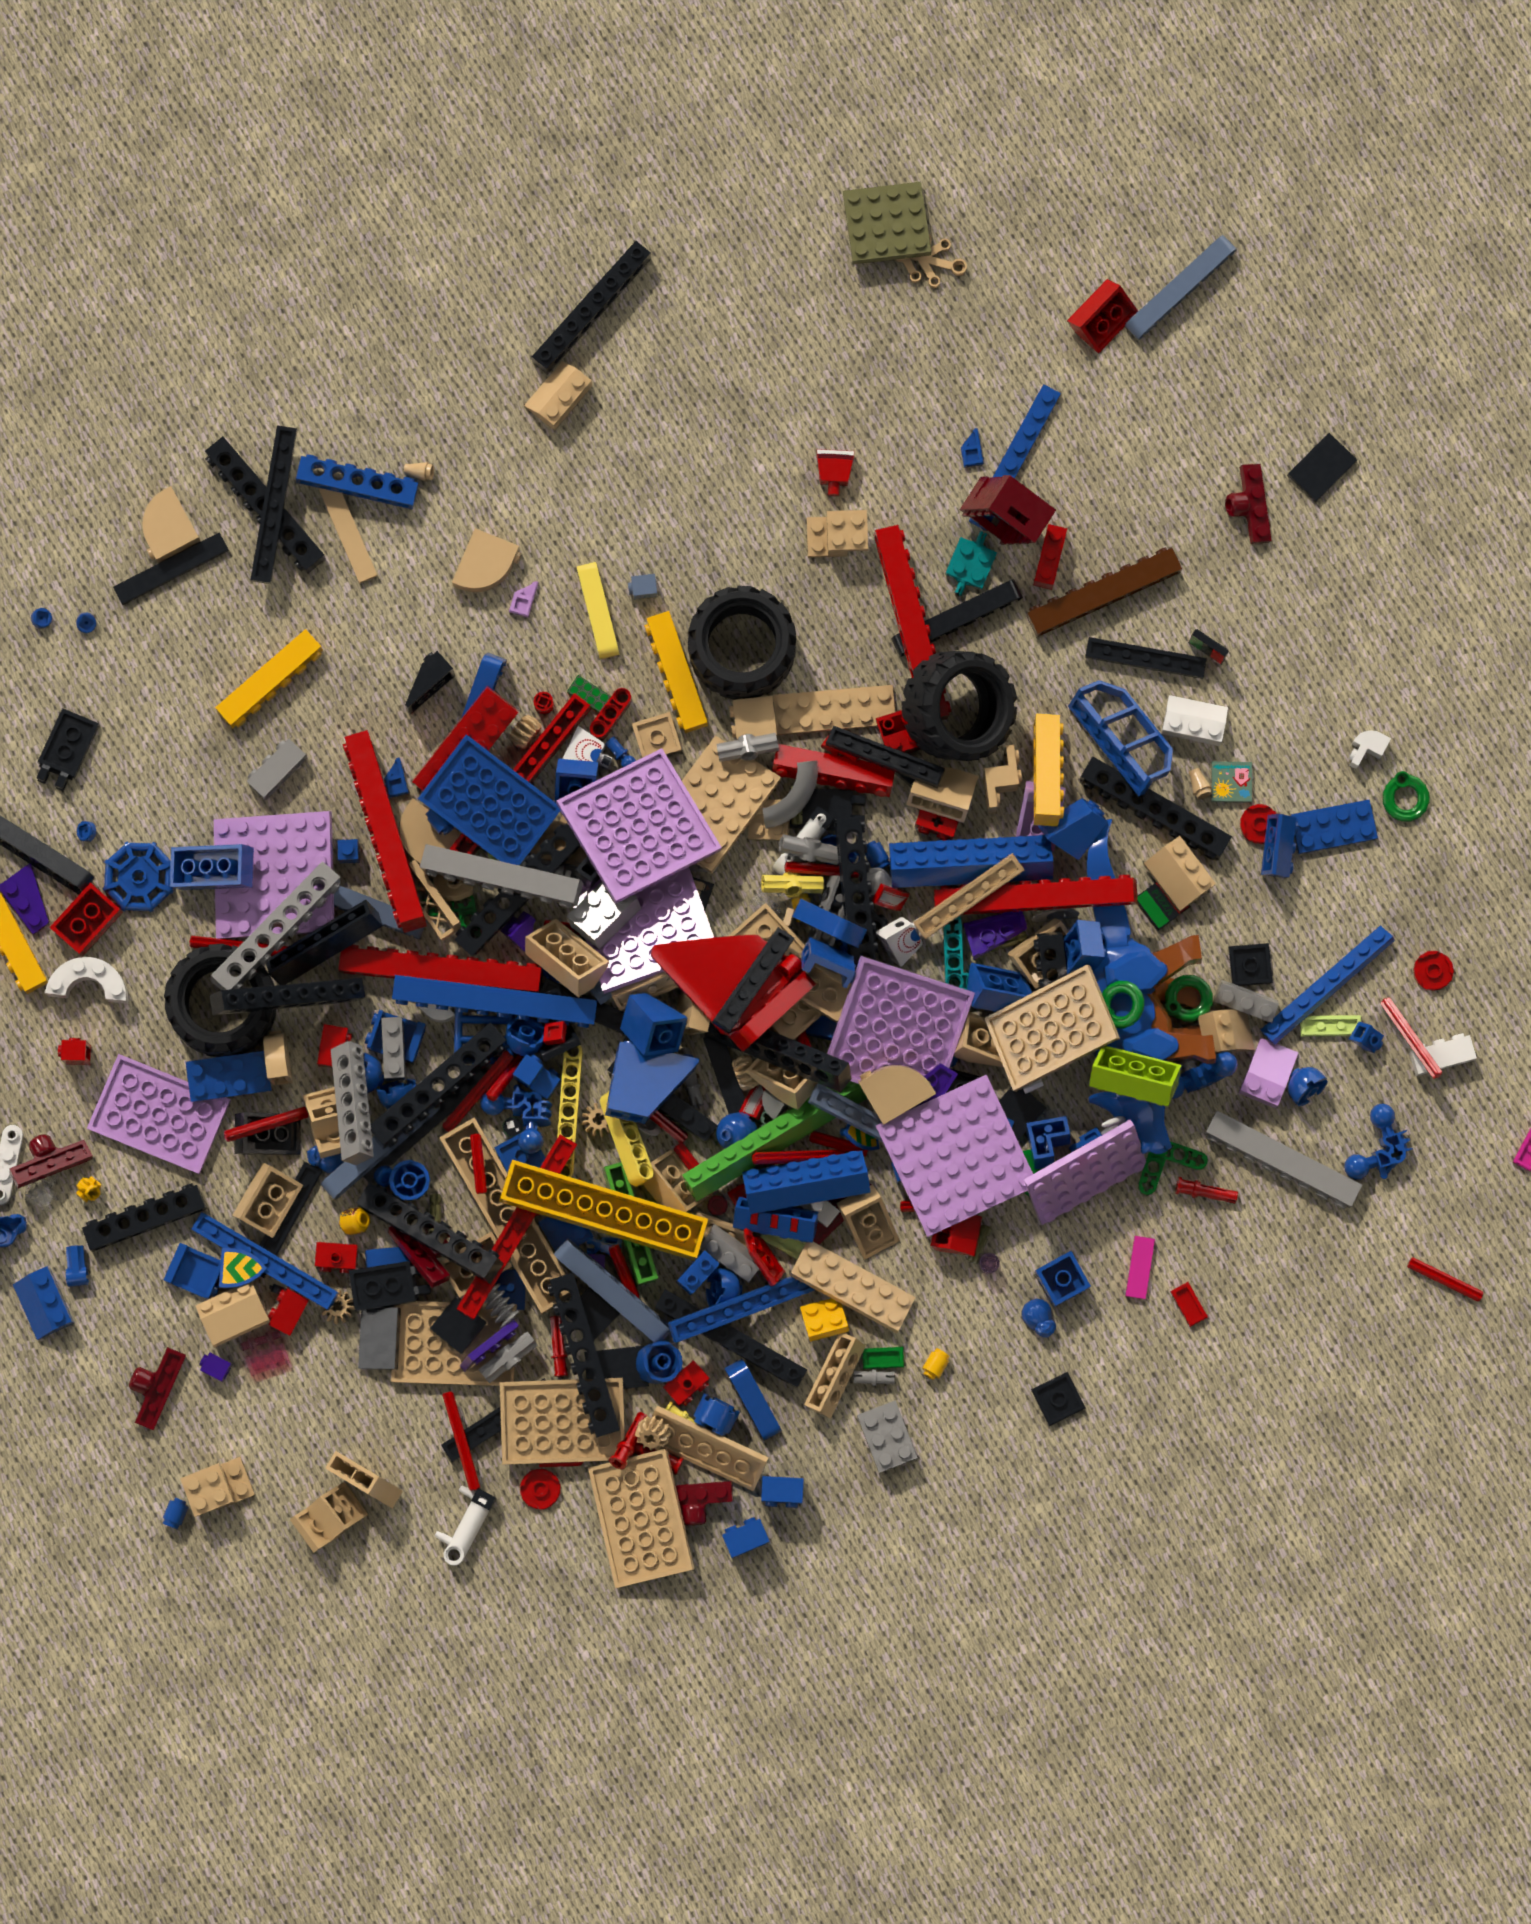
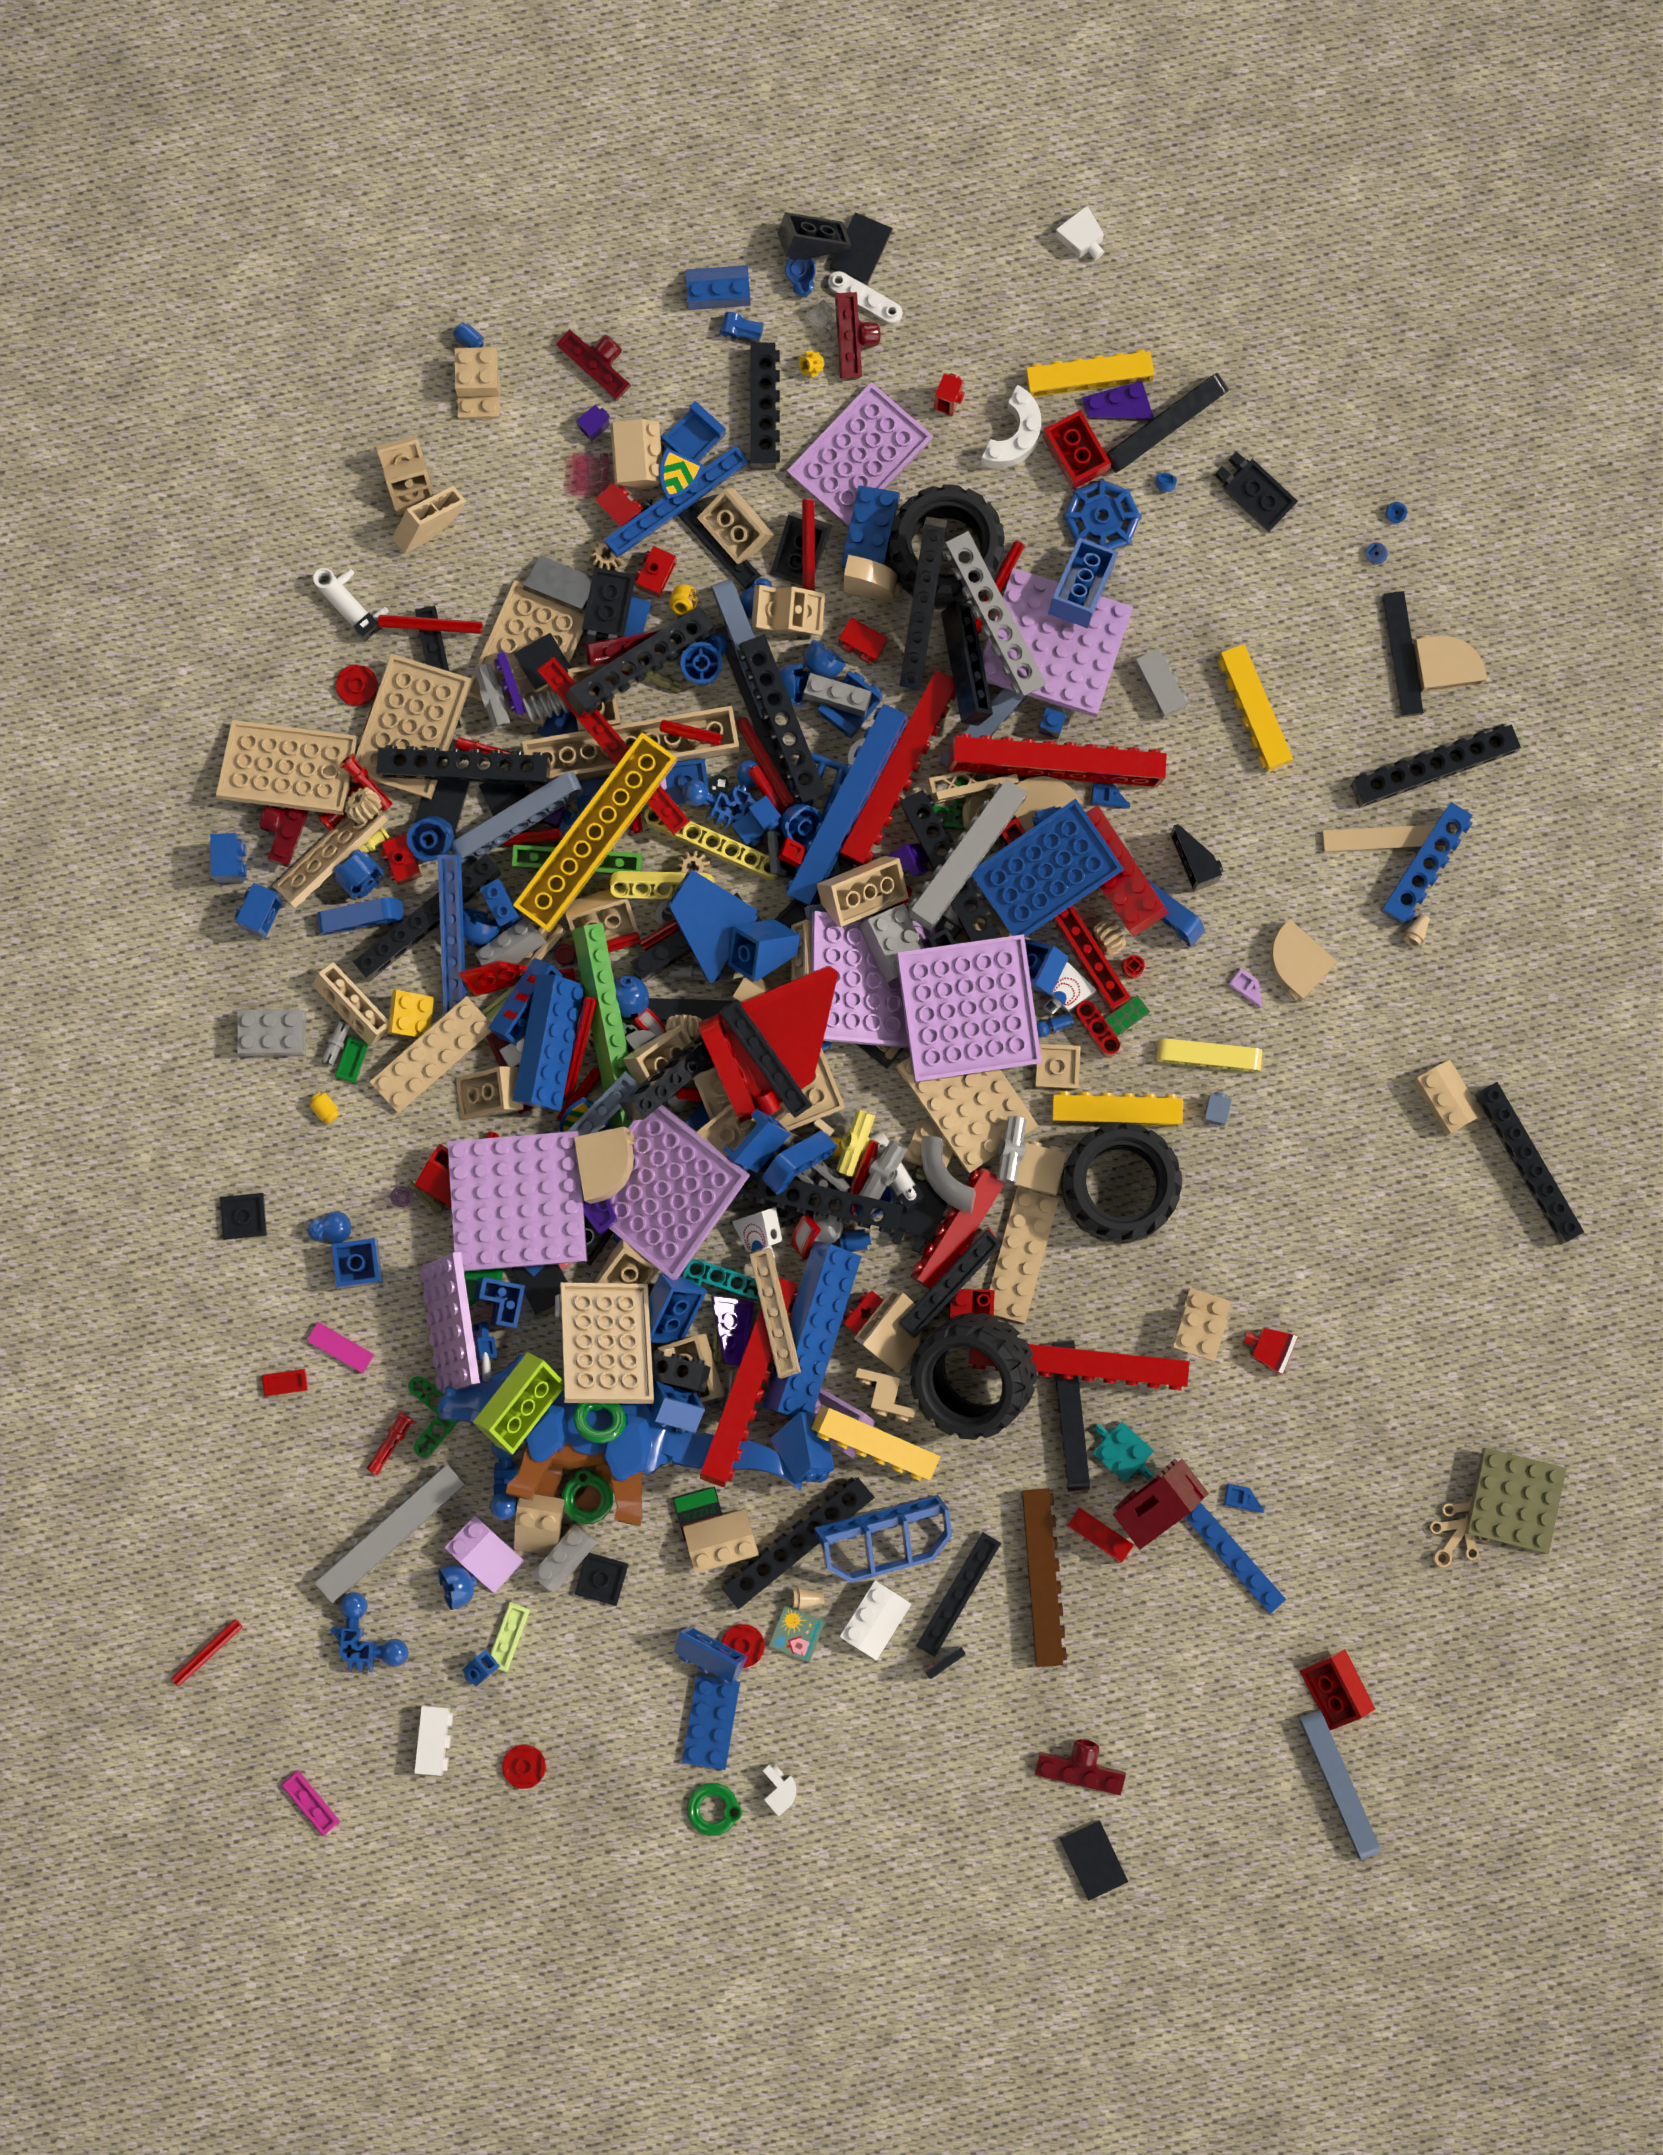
camera: 110 degrees right, 0 degrees up
(273, 504) = (1431, 770): black plate -> none
(352, 1103) = (794, 628): light grey brick -> none
(1327, 985) = (550, 1650): blue plate -> none
(1411, 1038) = (460, 1713): axle -> none

